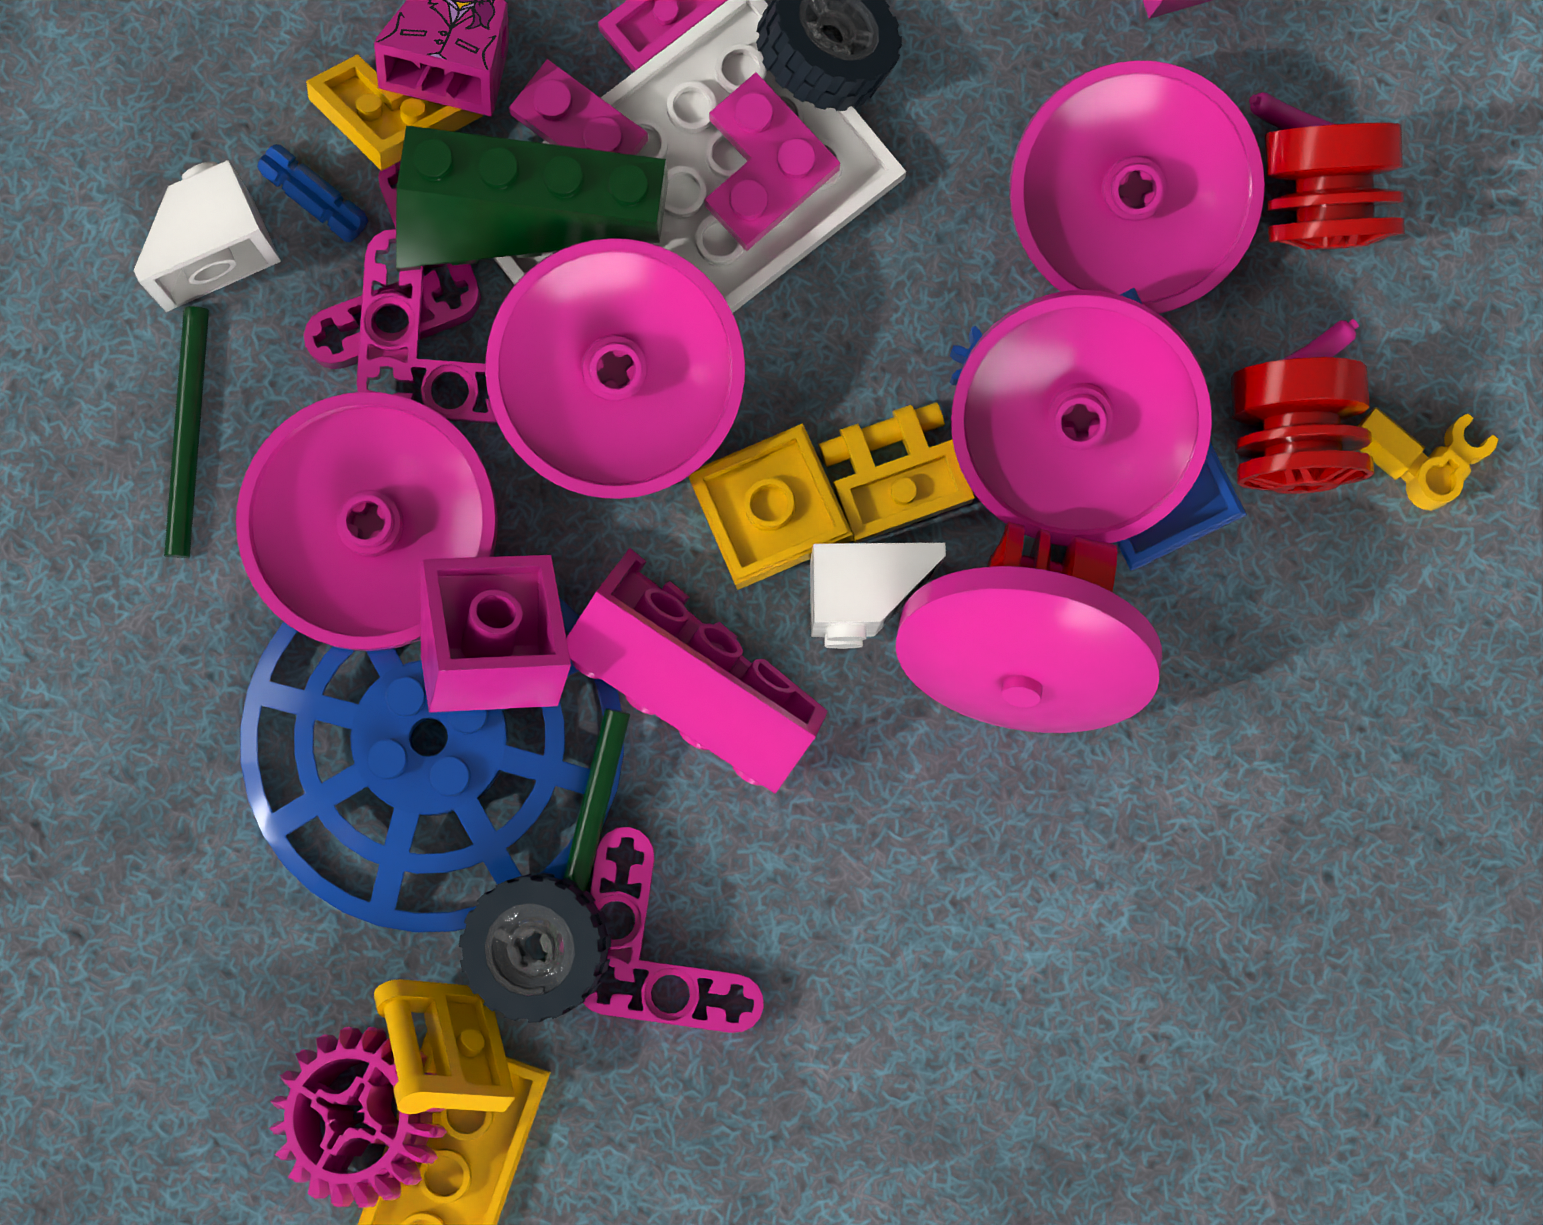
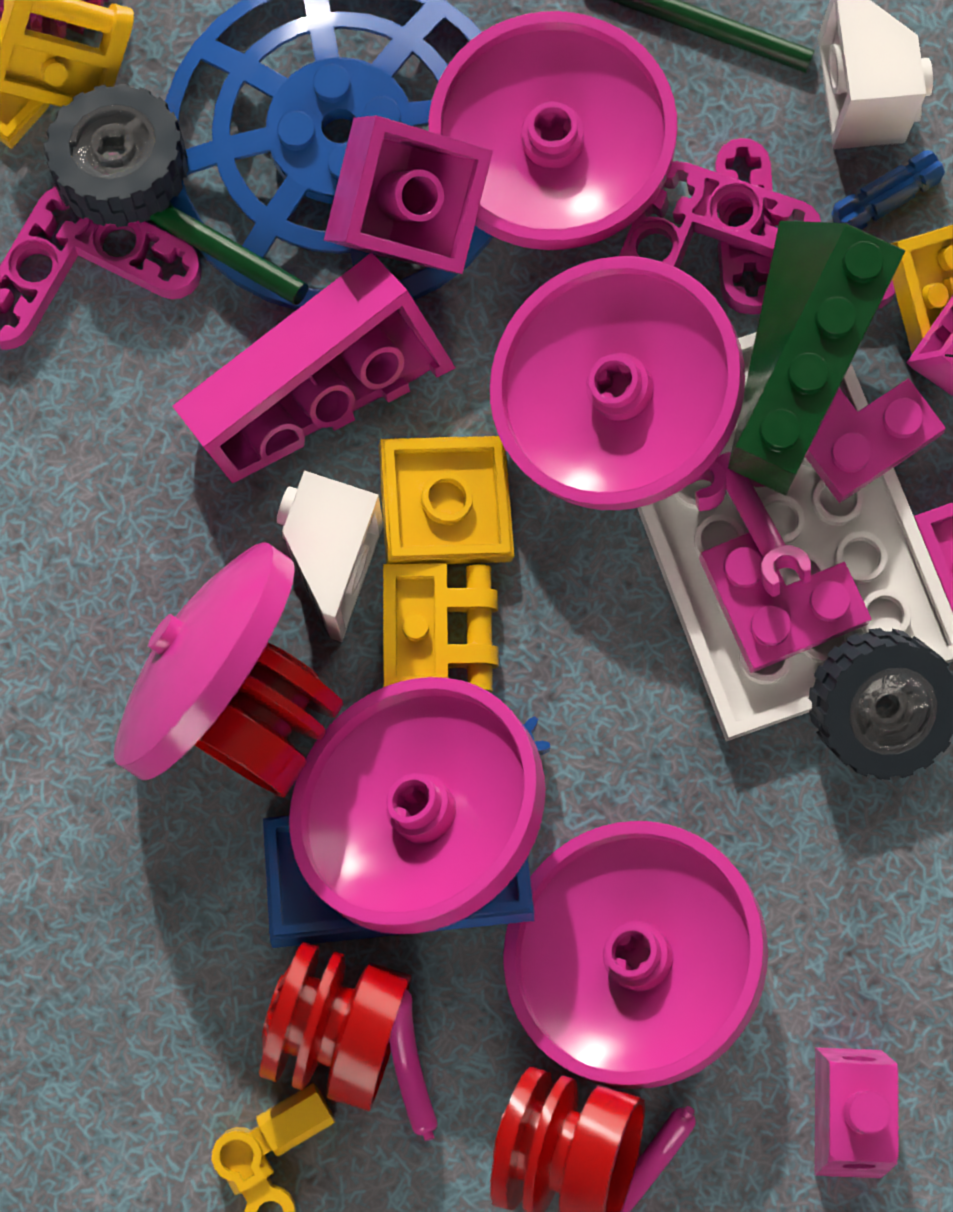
camera: 115 degrees right, 5 degrees down
(708, 193) = (757, 520): none -> dark pink bar

